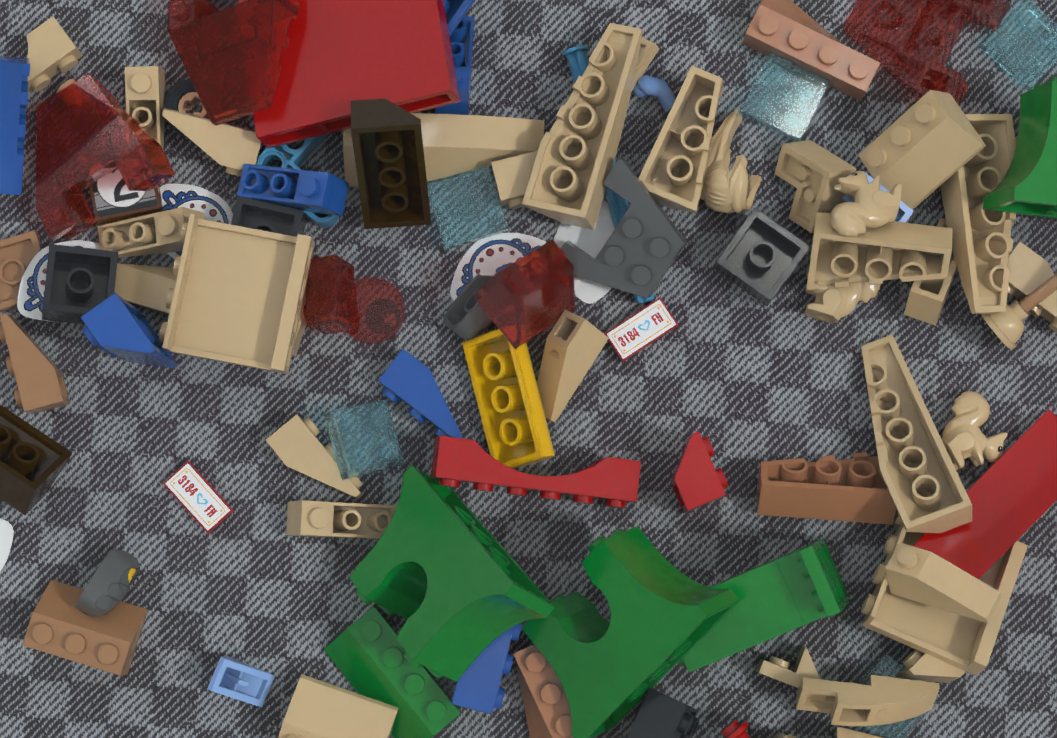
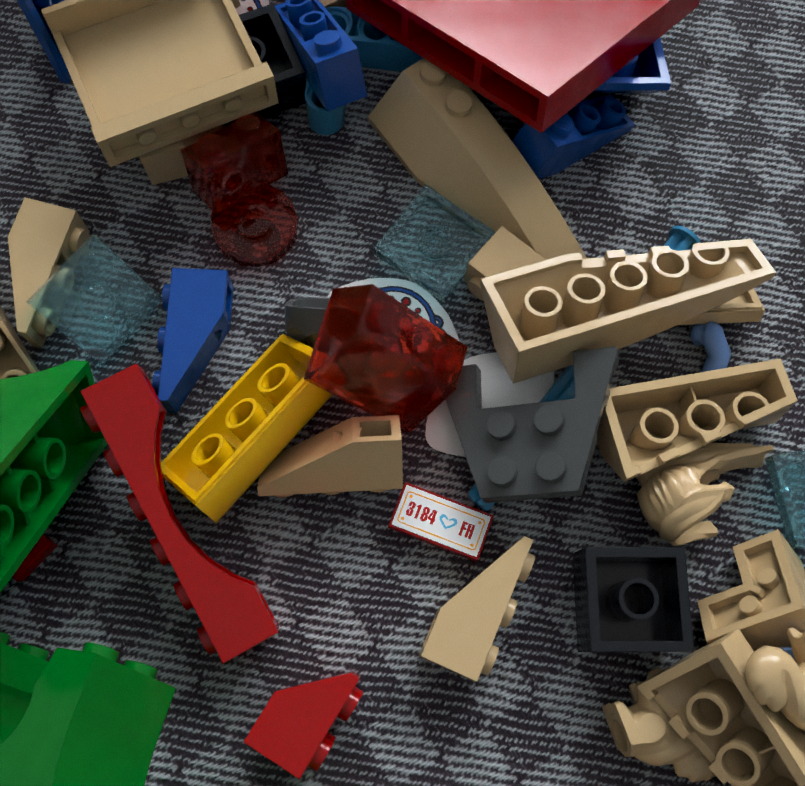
camera: 45 degrees right, 10 degrees down
(389, 165) = (413, 102): dark brown slope -> none
(707, 352) = (468, 622): none -> tan slope

